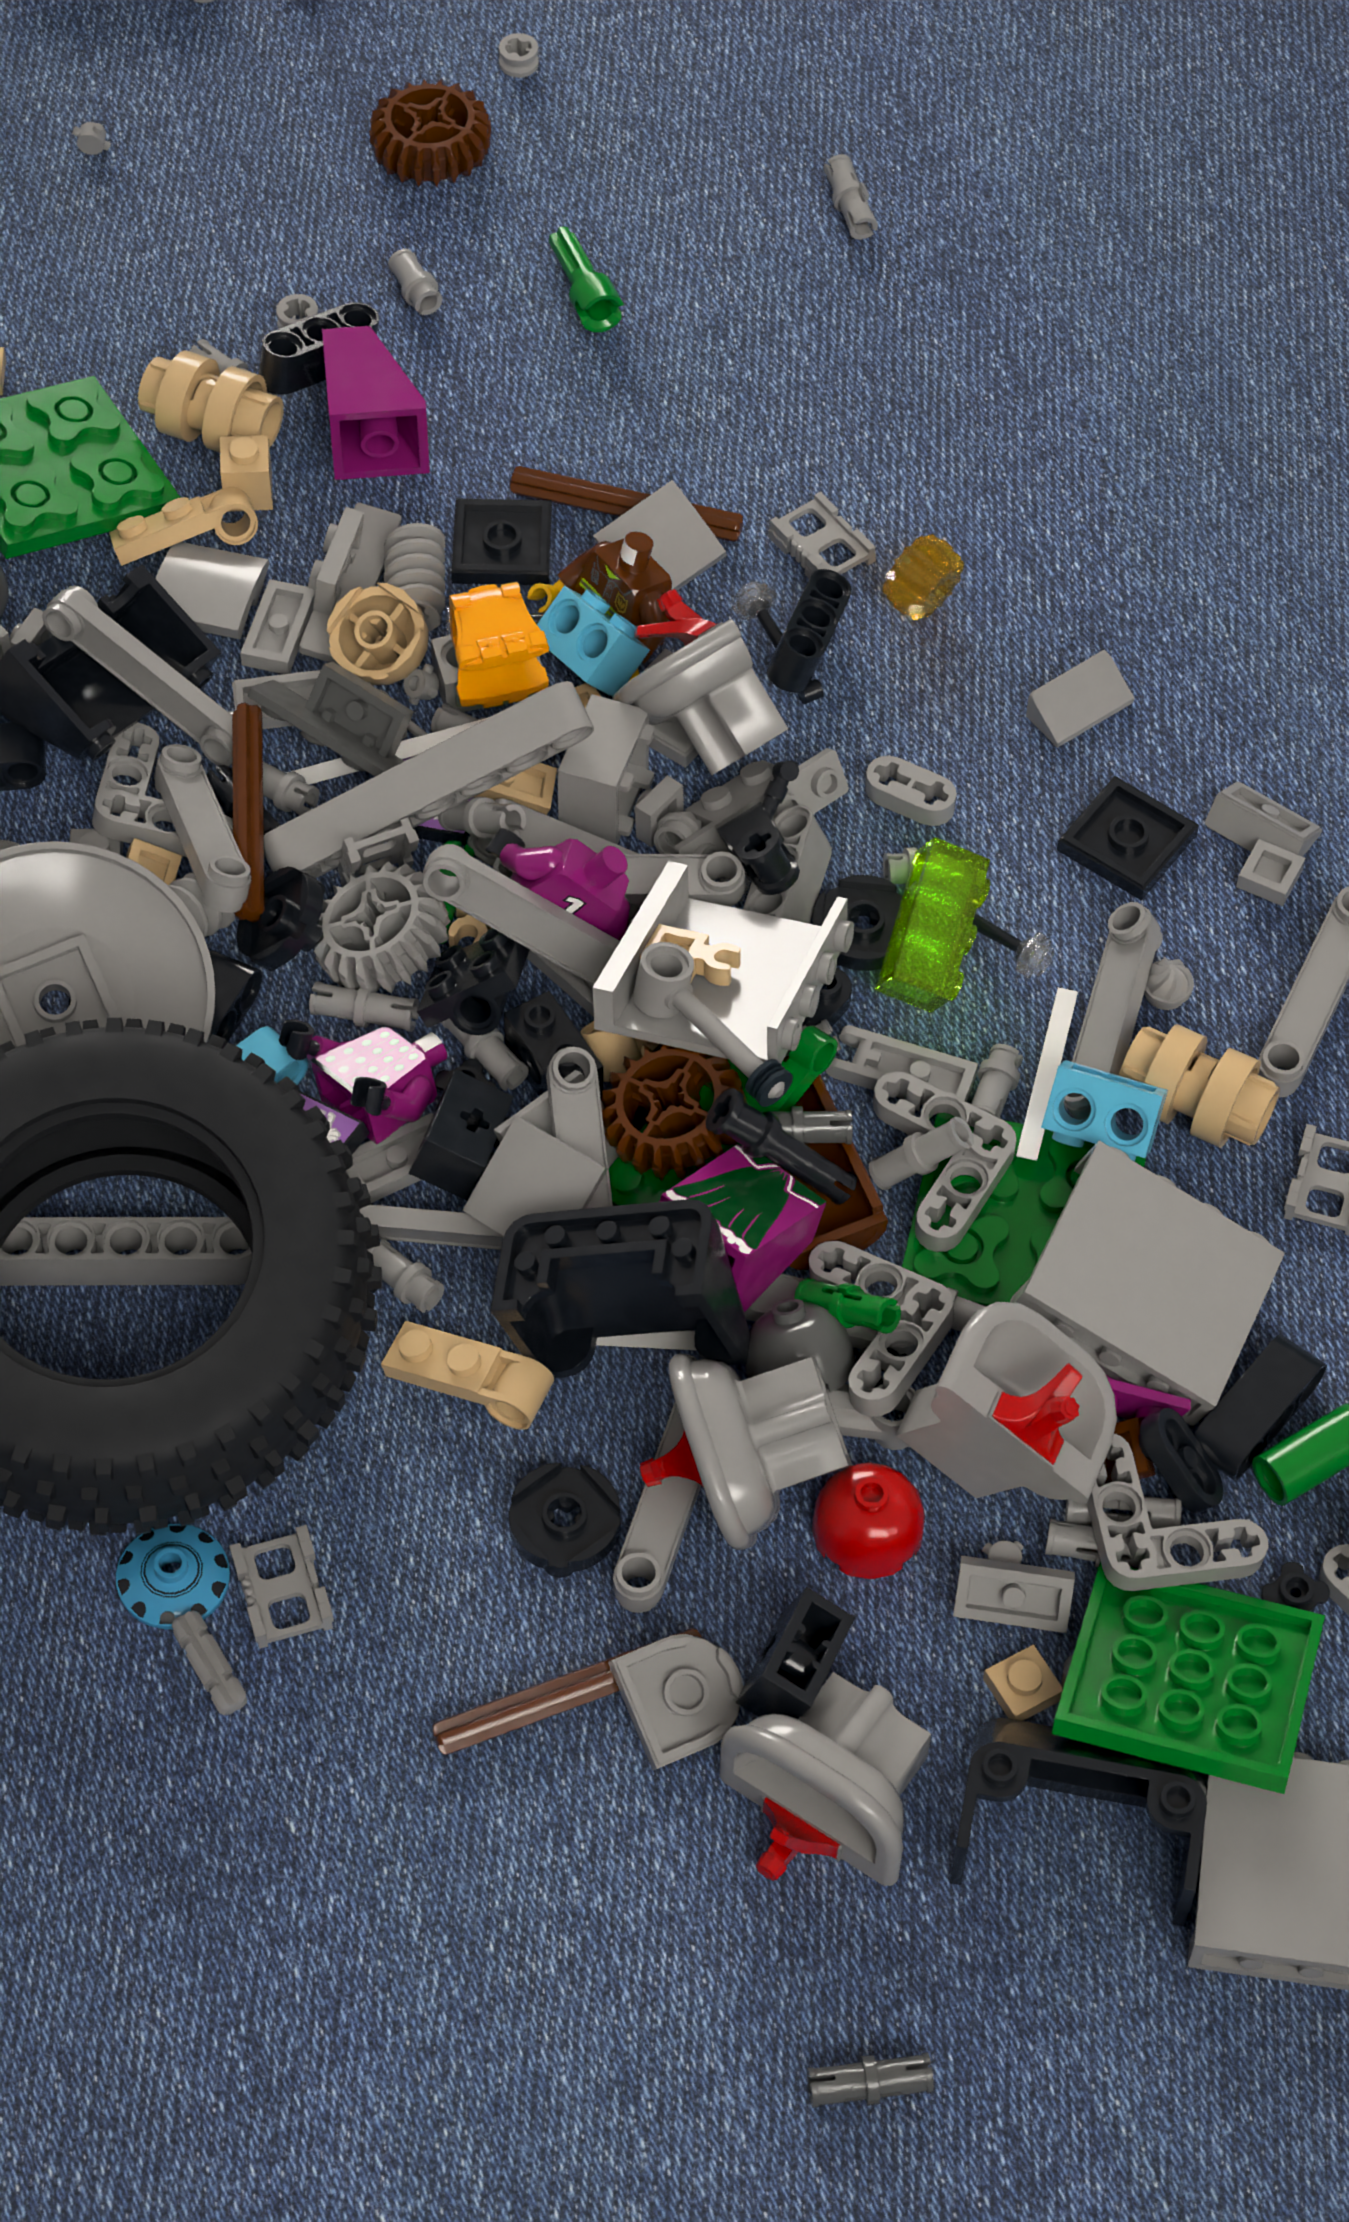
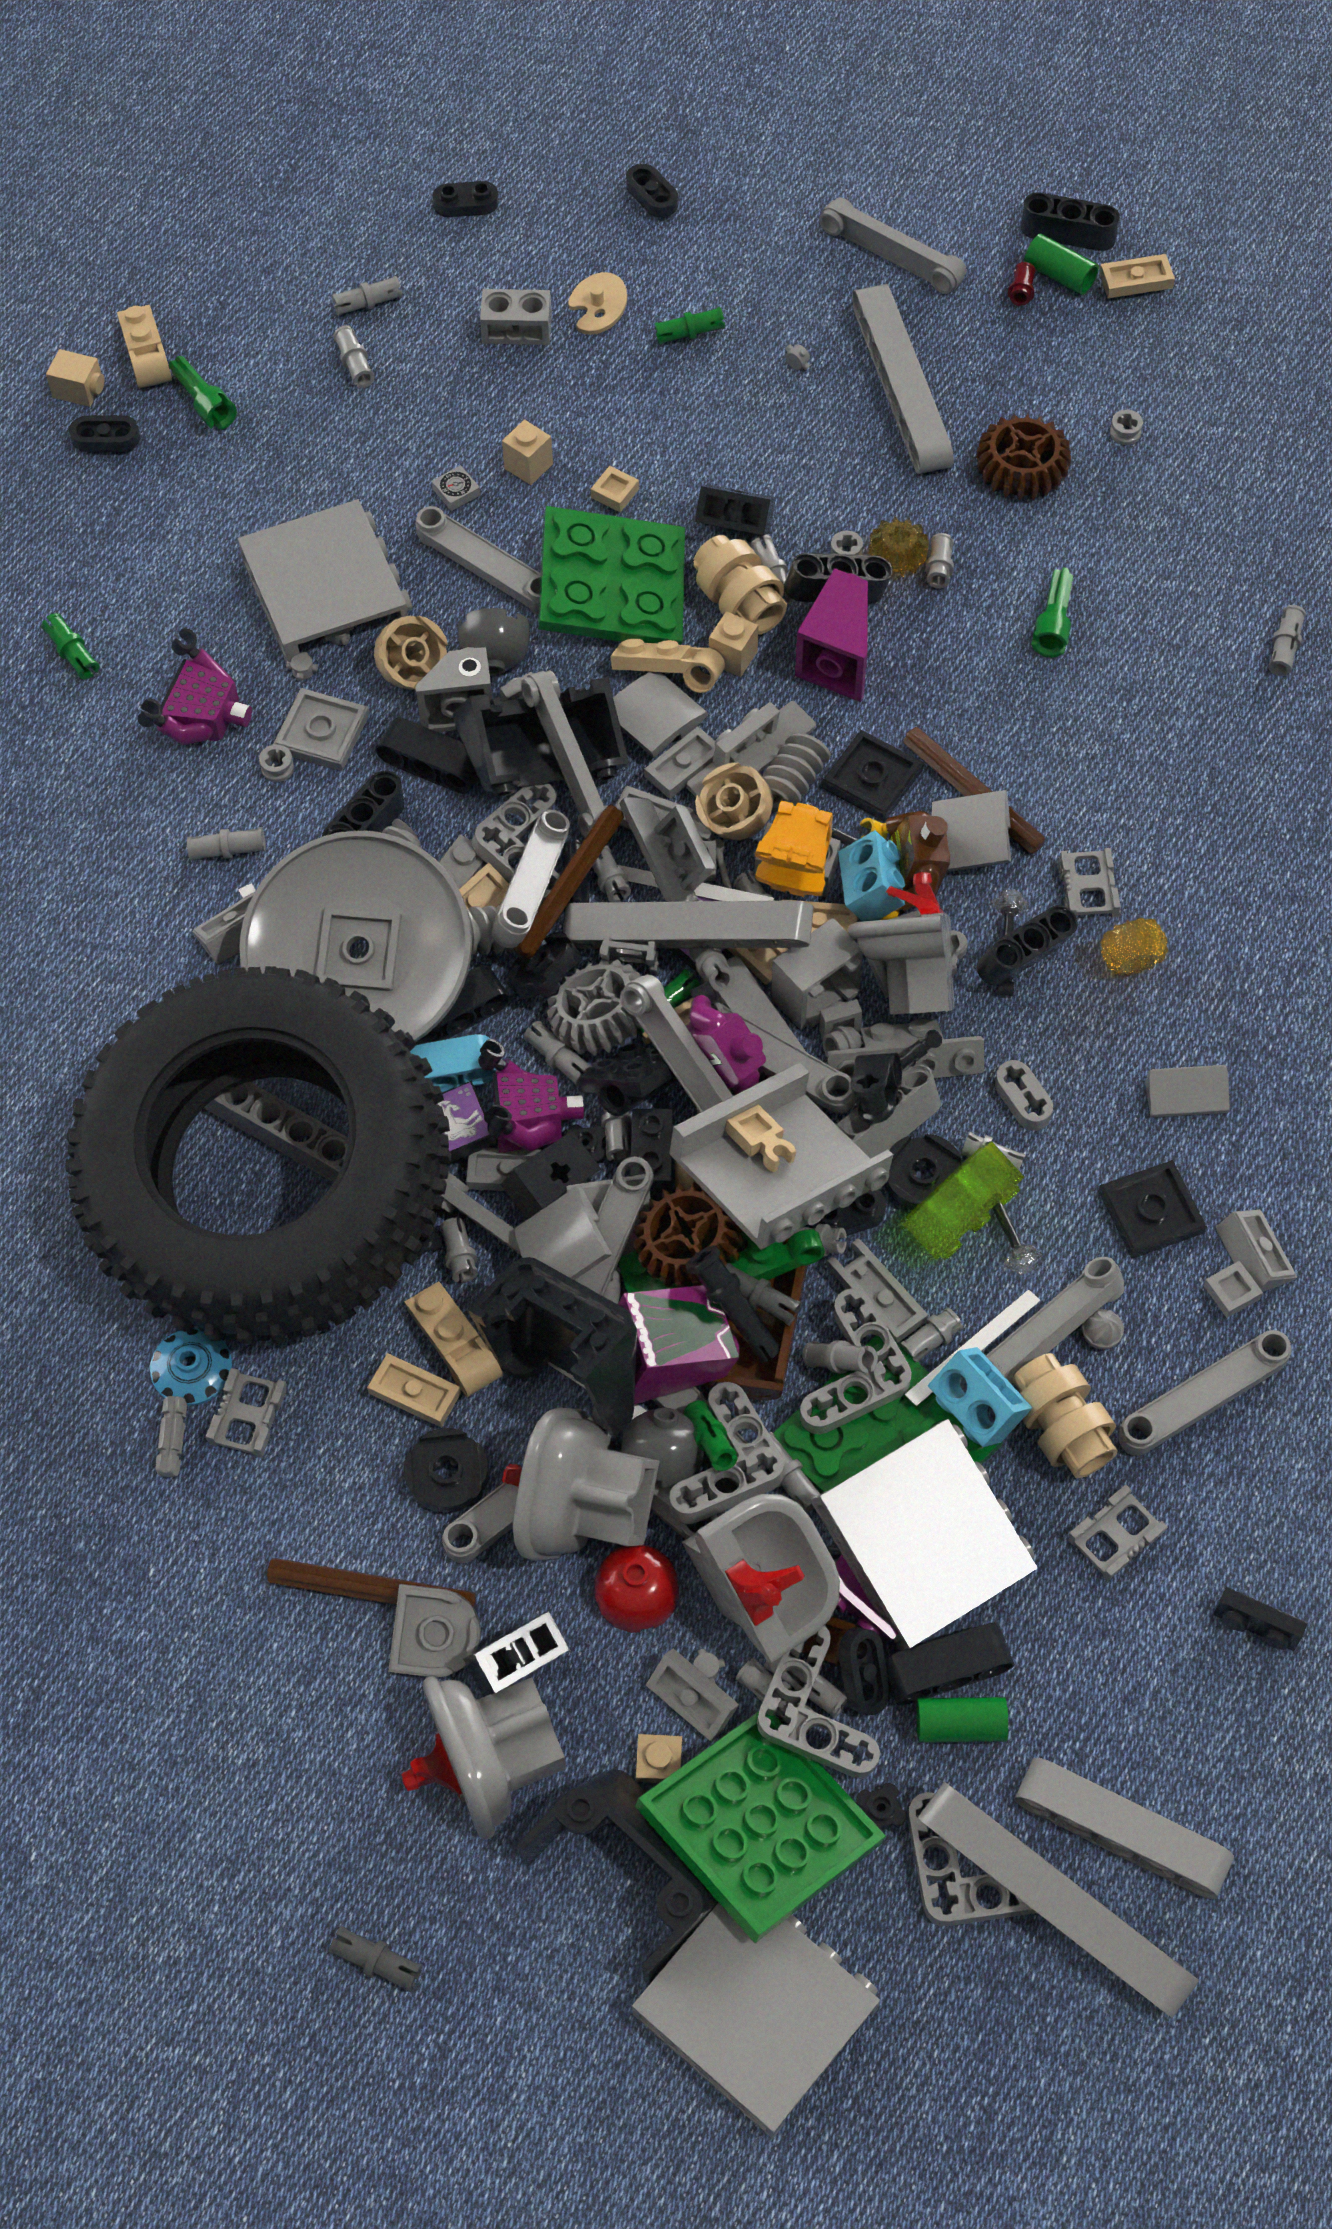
camera: 35 degrees right, 5 degrees up
(145, 327) = (735, 509): none -> black brick
(232, 109) = (902, 379): none -> light grey beam
(359, 279) = (900, 545): none -> clear yellow gear
(421, 684) = (746, 849): light grey piece -> none
(463, 1452) = (414, 1390): none -> tan plate
(665, 990) = (744, 1253): light grey piece -> none

